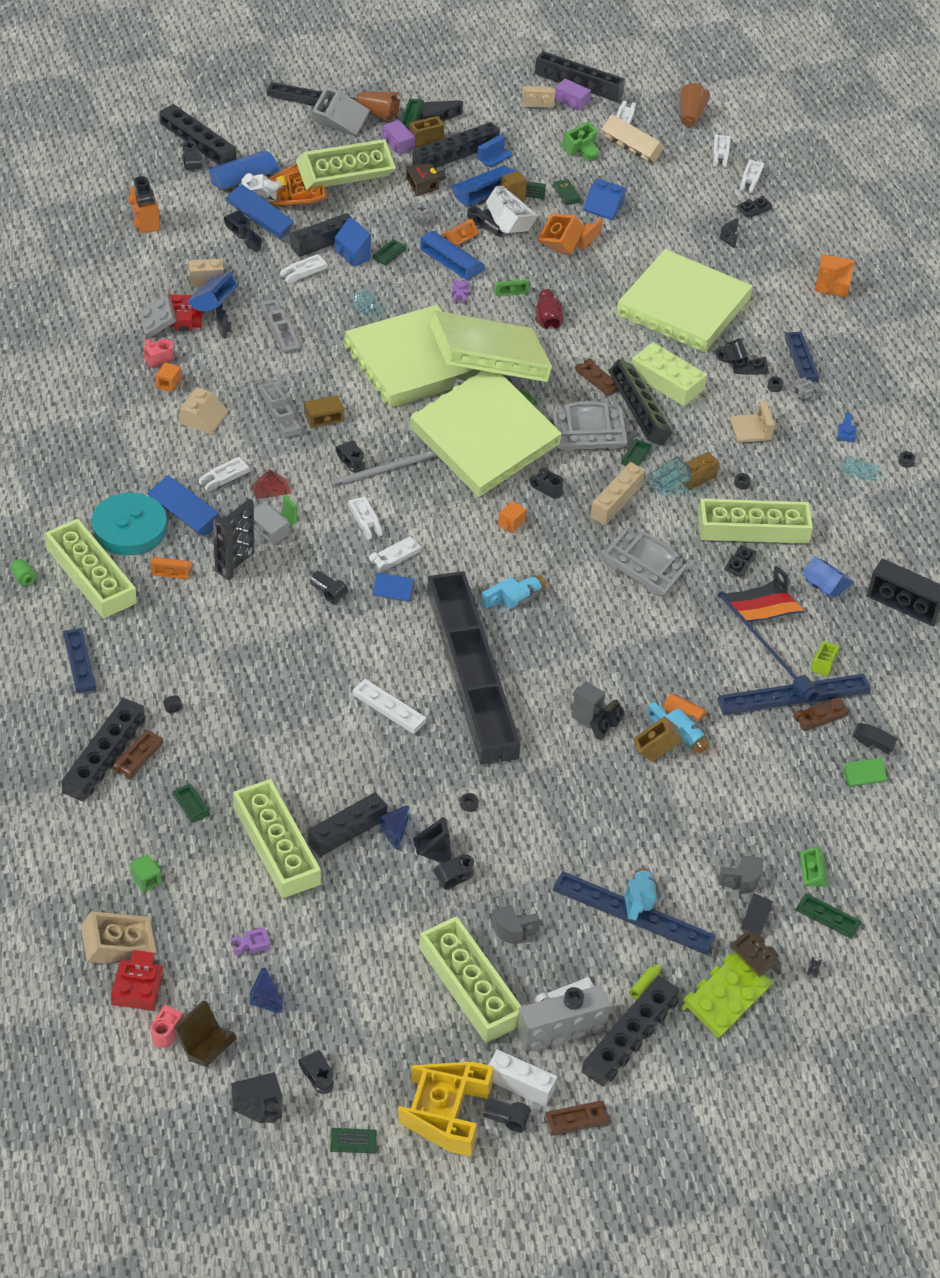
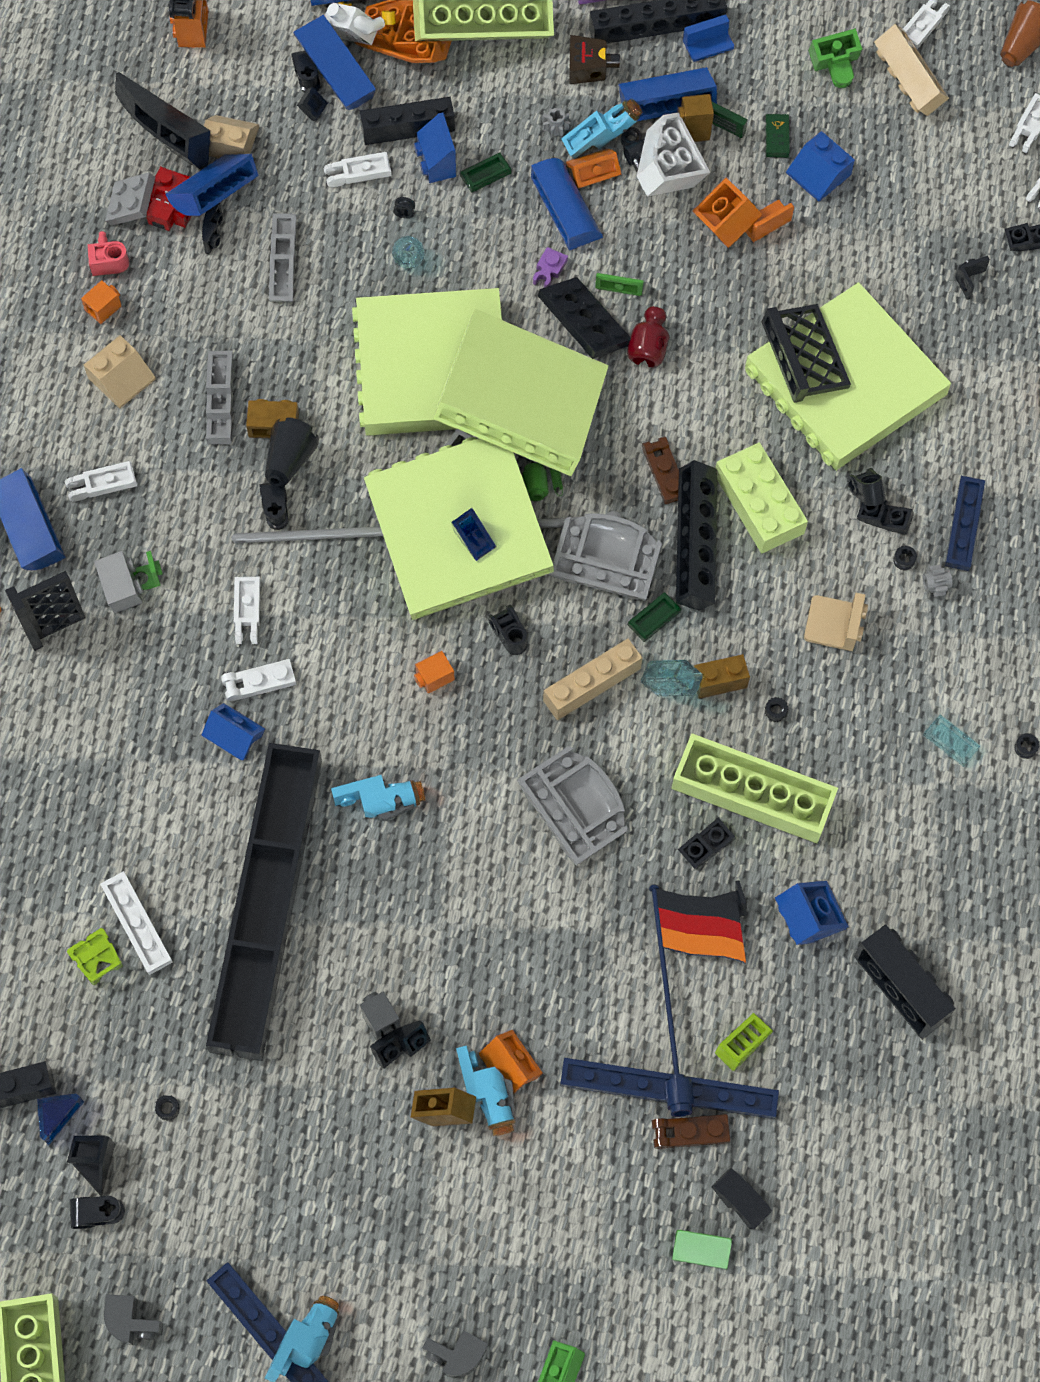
camera: 25 degrees right, 20 degrees up
(165, 271) = (166, 123): none -> black wedge
(270, 485) = (152, 519): clear red slope -> none
(331, 589) = (149, 711): black piece -> none
(346, 276) = (404, 207): none -> black bush
(347, 418) = (288, 450): none -> black cone
(368, 730) = (93, 950): none -> lime piece
(454, 209) = (601, 129): none -> medium azure plate
(501, 308) = (585, 328): none -> black plate
(501, 425) = (473, 534): none -> clear blue slope
(651, 295) = (786, 351): none -> black fence
(846, 431) = (965, 670): blue plate -> none

